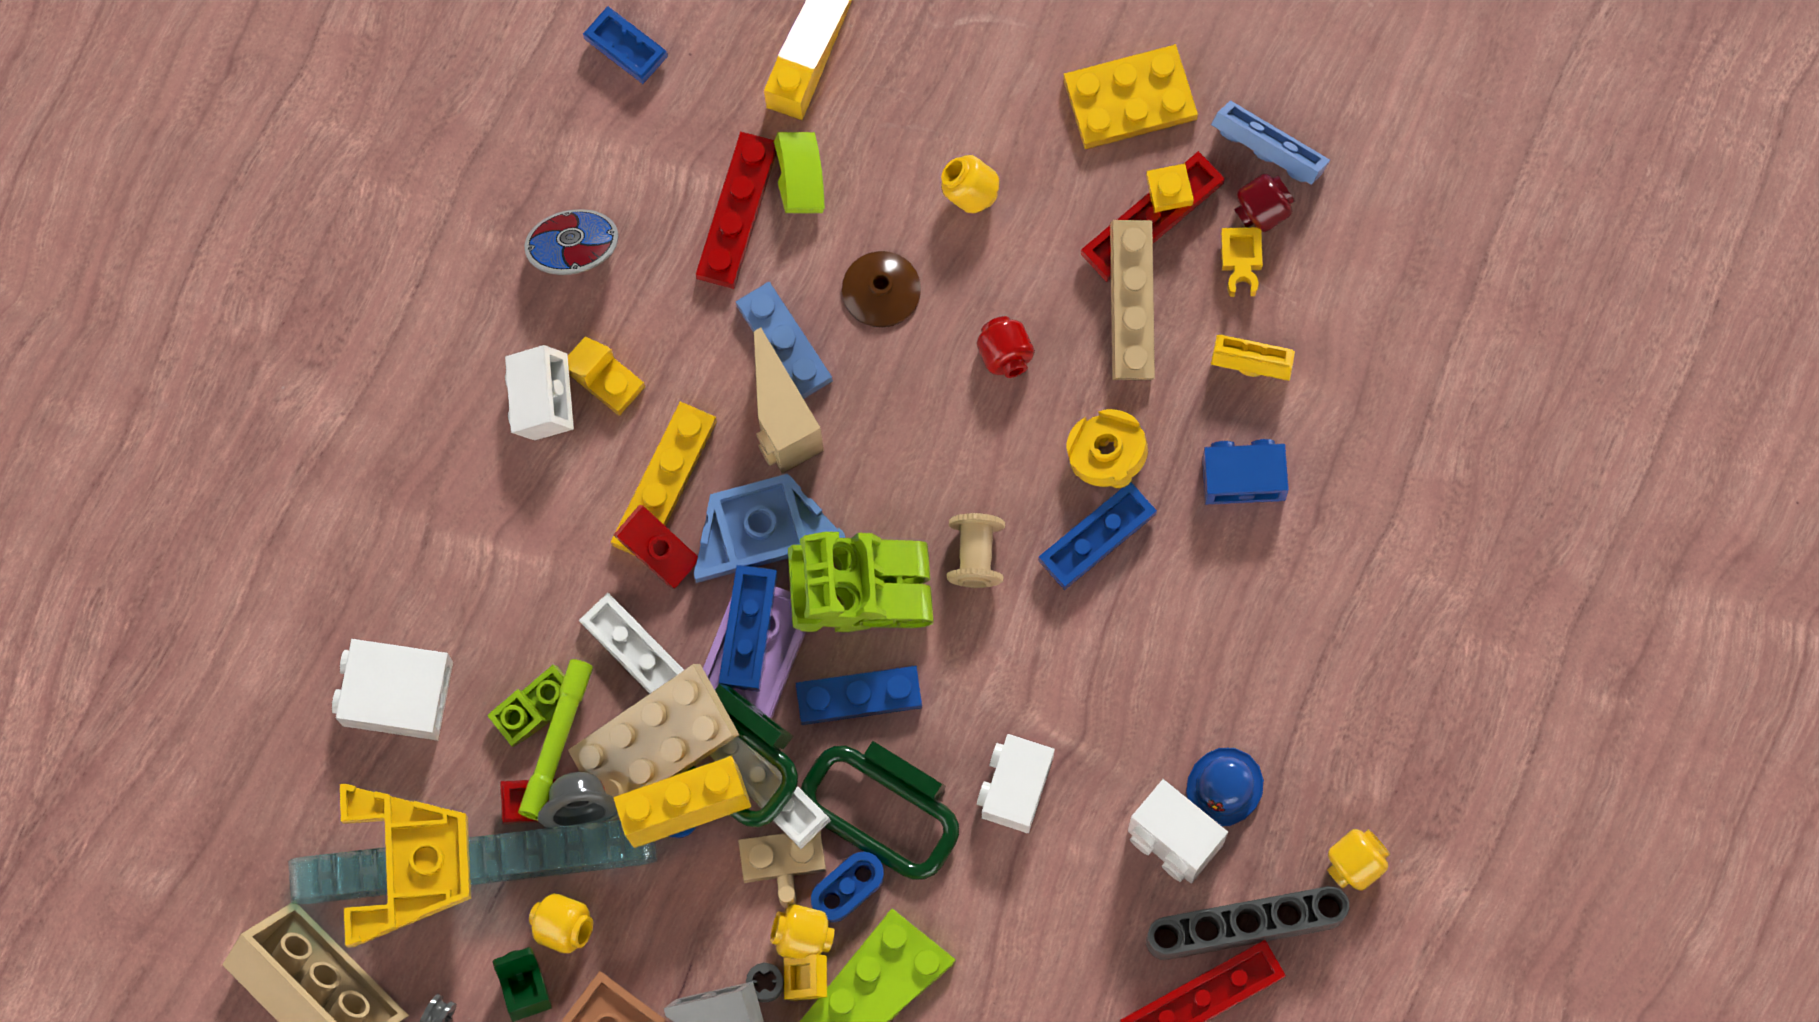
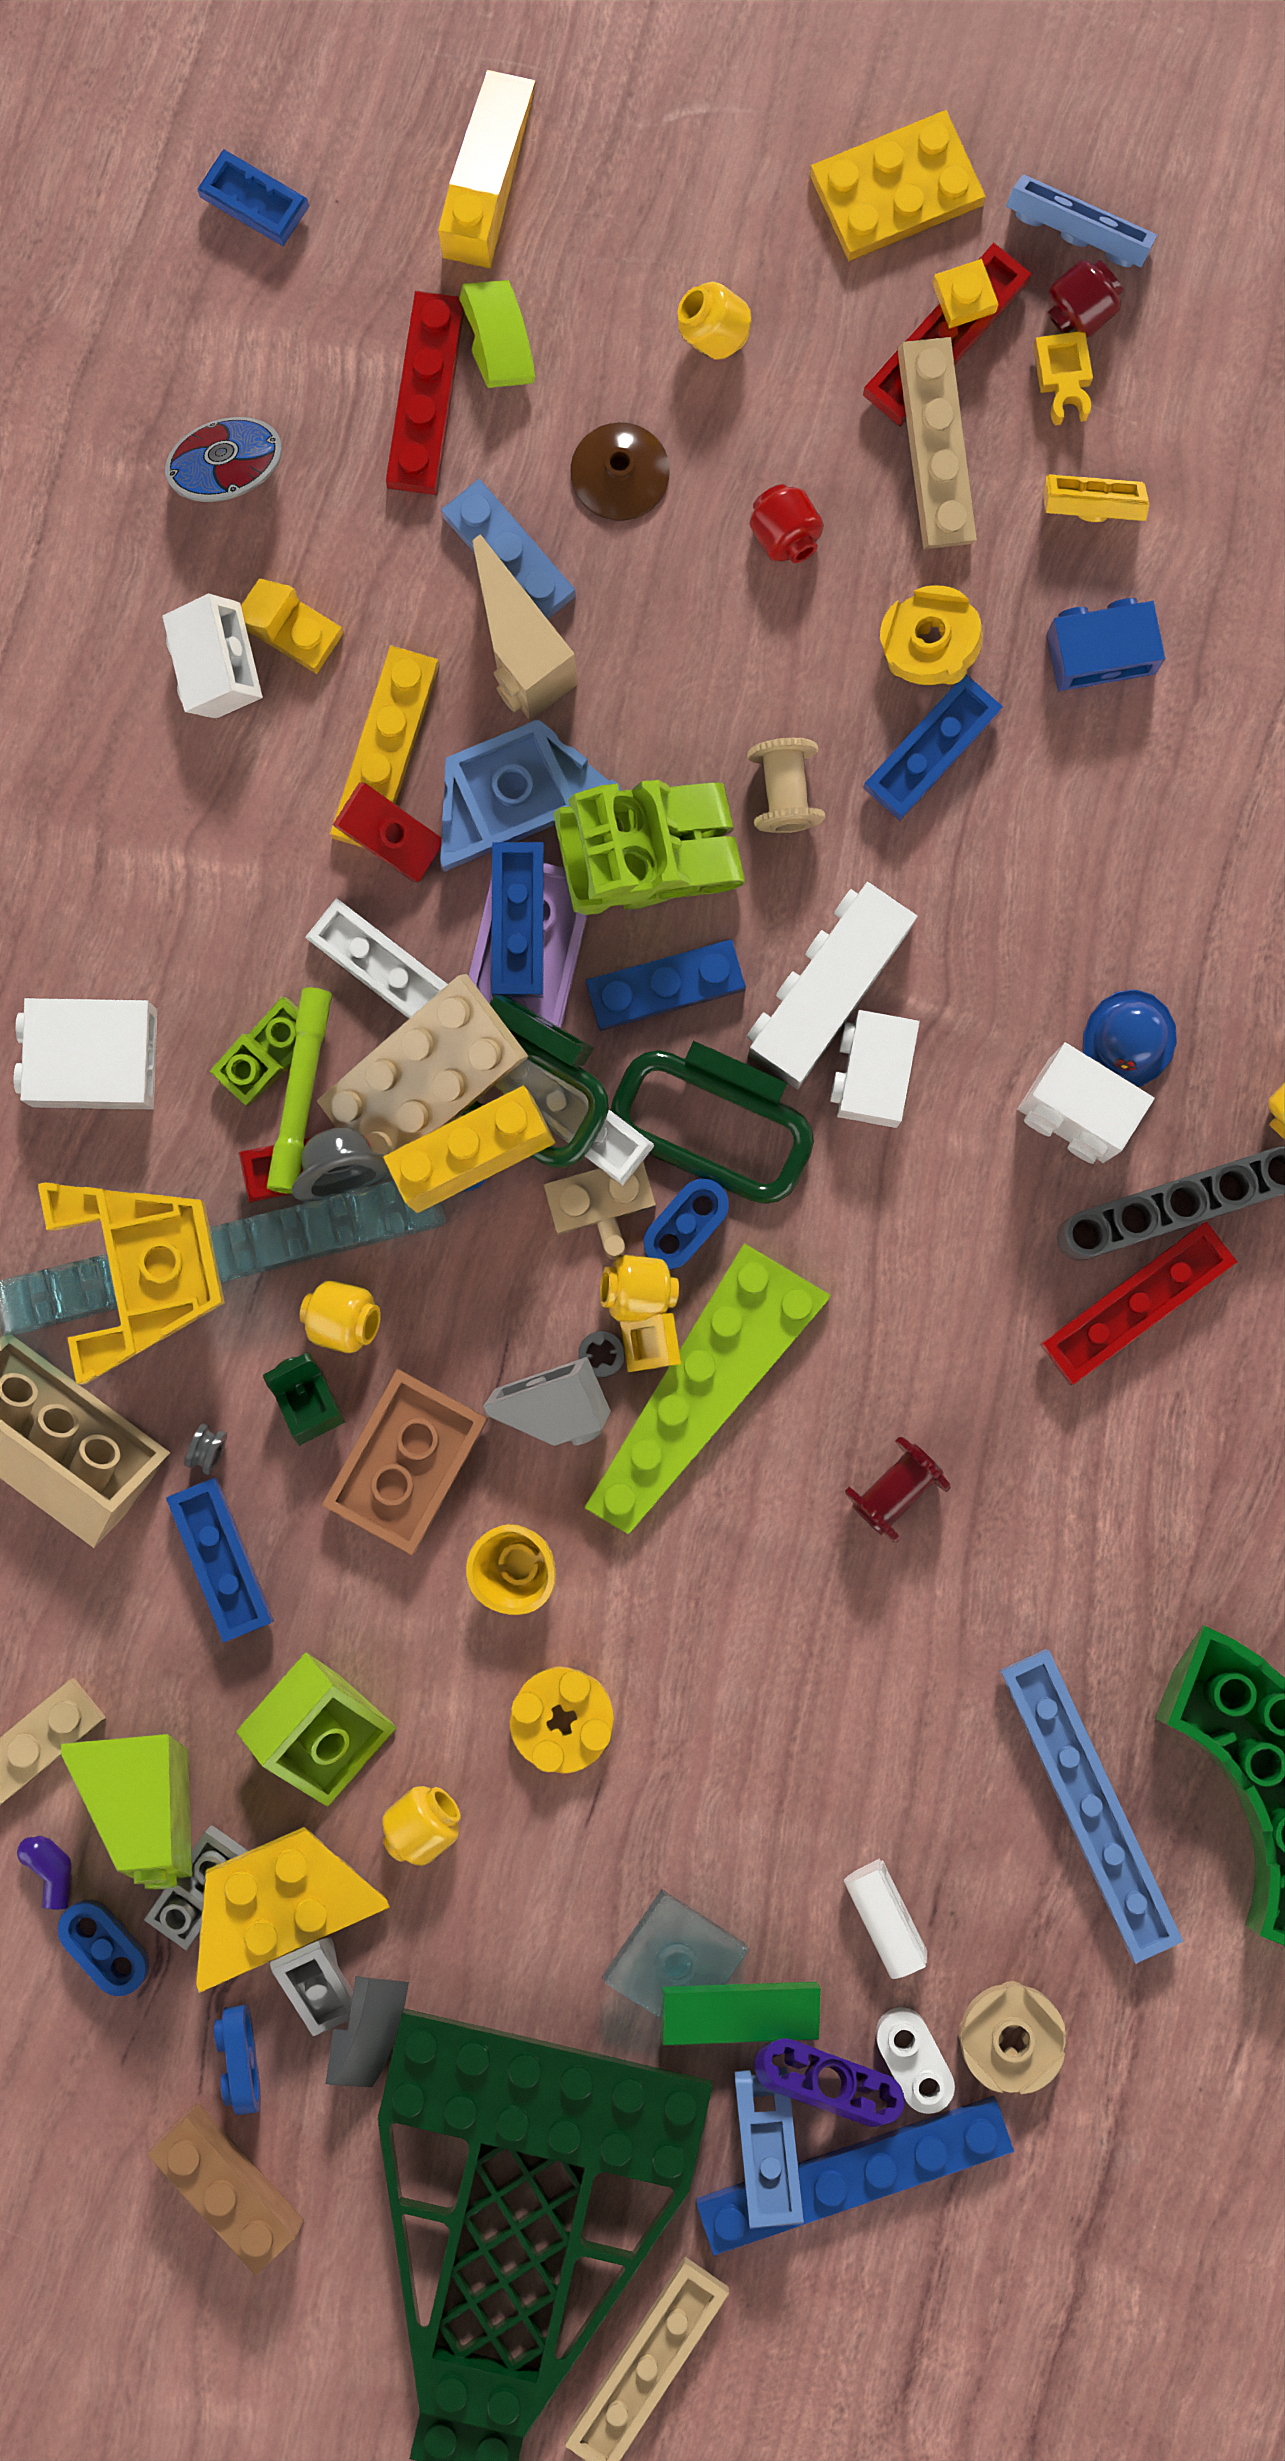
camera: 10 degrees left, 10 degrees up
(989, 712) = (831, 985): none -> white brick

